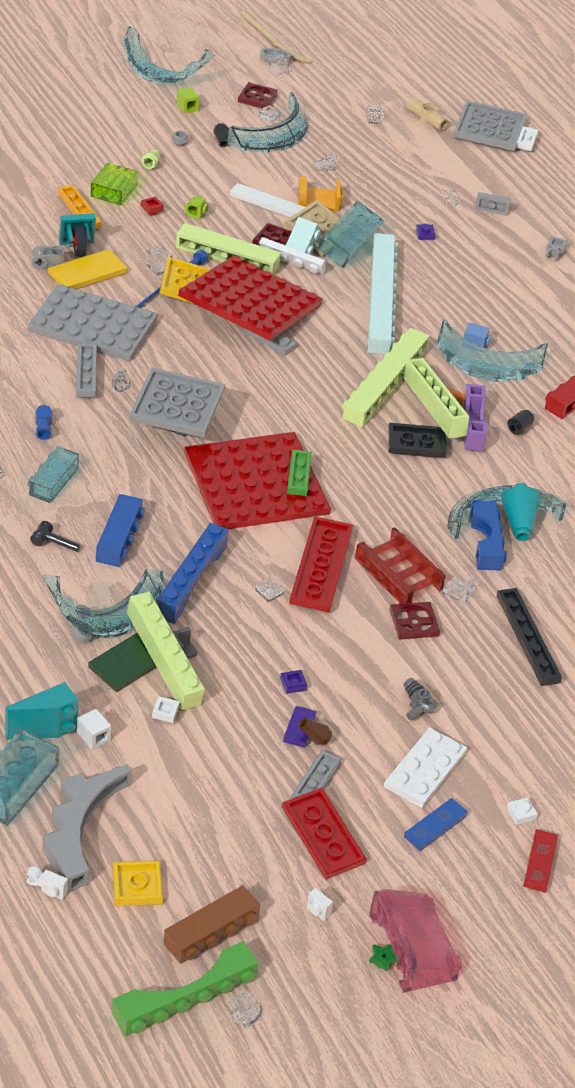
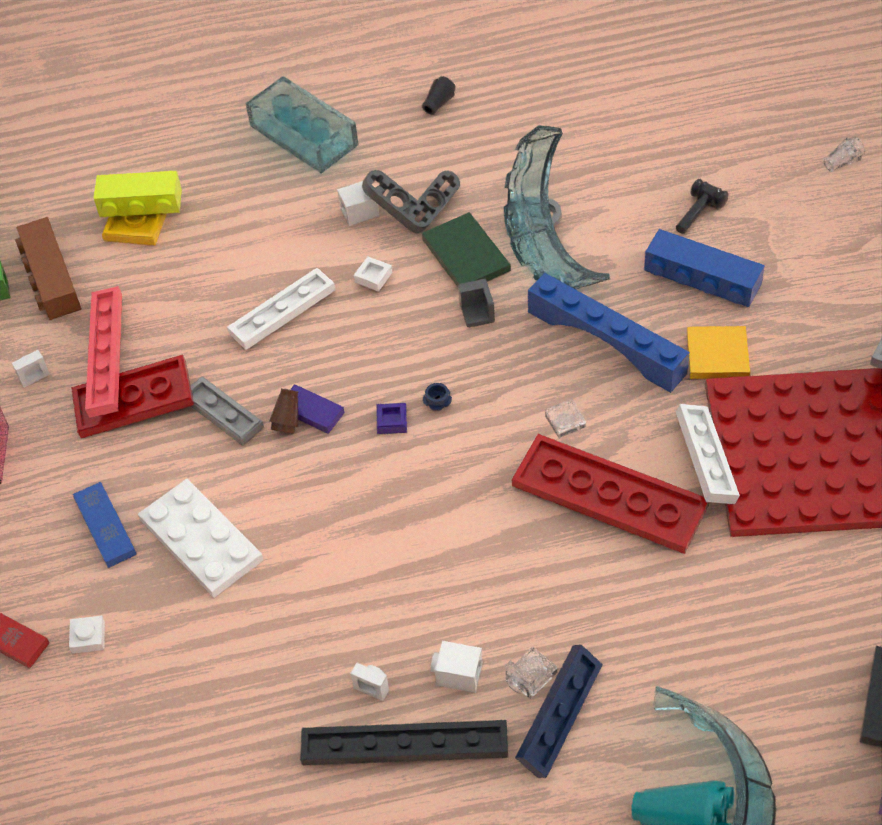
camera: 115 degrees right, 10 degrees up
(44, 714) = (381, 148): teal slope -> none
(50, 882) = (155, 145): white plate -> none
(53, 474) = (823, 213): clear light blue brick -> none
(69, 818) = (200, 162): light grey arch -> none
(95, 693) = (411, 206): none -> dark grey beam
(123, 872) = (137, 193): none -> neon yellow brick
(165, 651) = (439, 276): yellowish green brick -> none
(187, 522) = (717, 352): none -> yellow tile
(214, 758) = (281, 308): none -> white plate
(270, 657) = (434, 391): none -> dark blue plate
(282, 517) = (707, 454): none -> white plate
(292, 853) = (104, 352): none -> coral plate
(299, 472) = (808, 494): bright green tile -> none
(393, 581) = (577, 564): clear red fence -> none
(416, 632) = (476, 569): dark red piece -> none
(420, 699) = (310, 555): flat silver piece -> none
(471, 616) = (457, 666): none -> white brick
(489, 552) = (683, 756): blue arch -> none
(489, 573) = (559, 711): none -> dark blue plate
(497, 654) = (370, 681): none -> white plate

